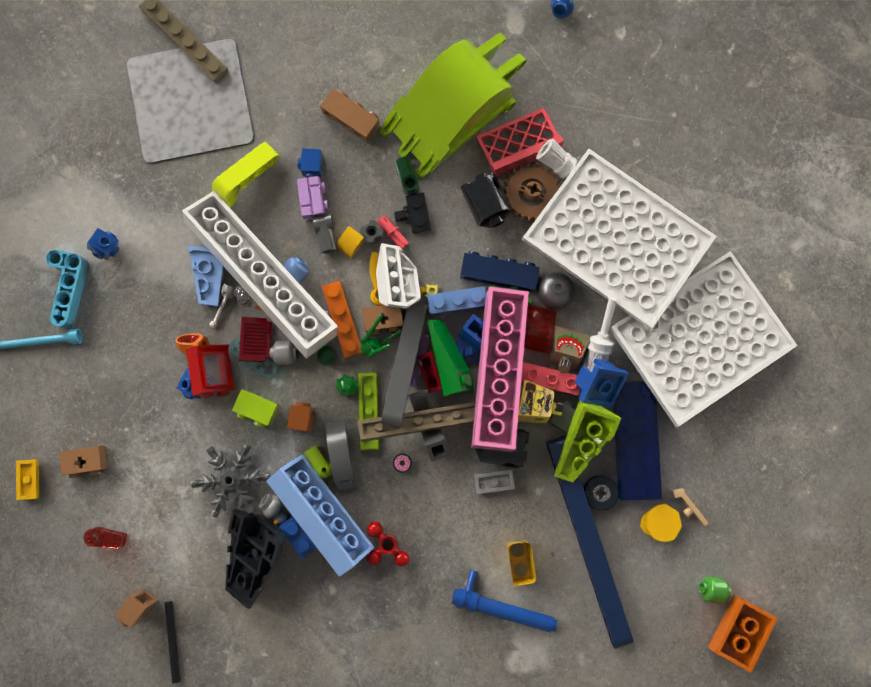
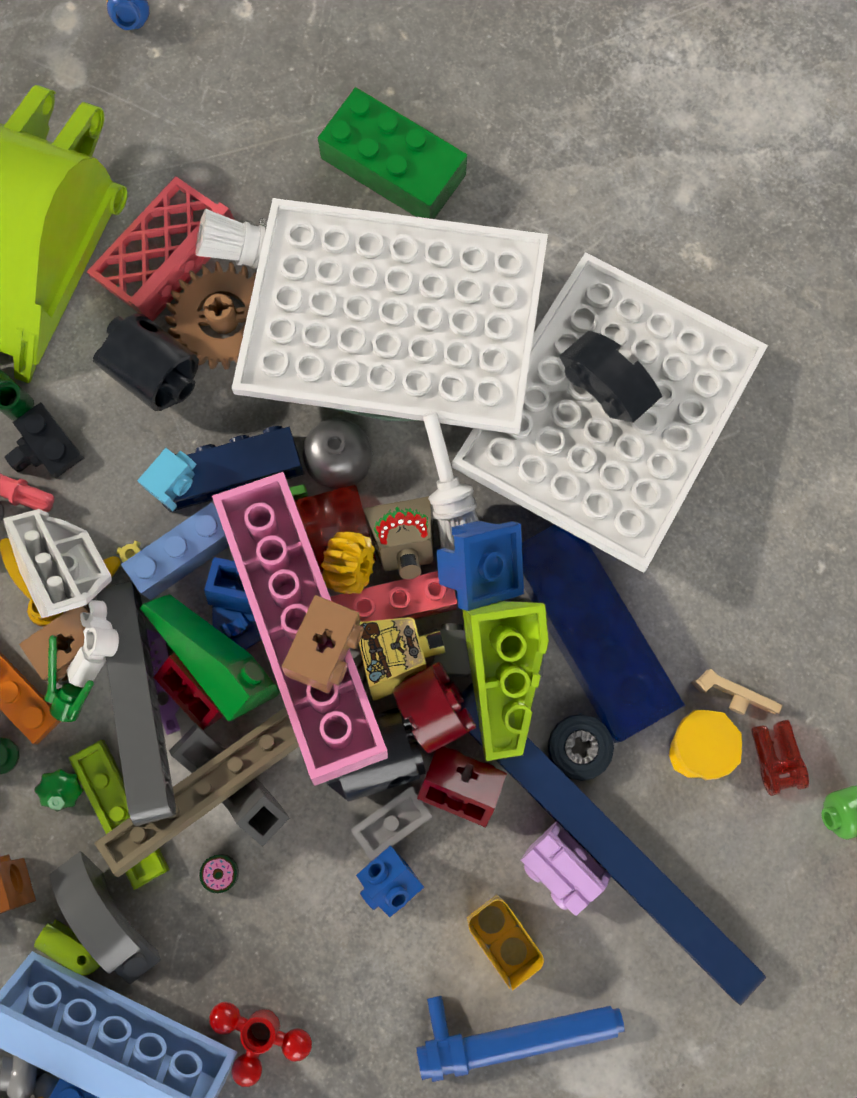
camera: 25 degrees left, 5 degrees down
(402, 328) = (99, 642): none -> white bar
(471, 264) = (168, 477): none -> medium azure brick
(480, 508) = (388, 882): none -> blue brick
(518, 377) = (323, 622): none -> medium nougat brick
(536, 481) = (462, 786): none -> dark red brick
(537, 349) = (348, 562): none -> yellow gear
(543, 439) = (433, 708): none -> dark red brick
(565, 545) = (565, 869): none -> lavender brick
(658, 152) = (392, 155): none -> green brick
(699, 550) = (790, 758): none -> clear red piece
(708, 321) = (615, 382): none -> black brick

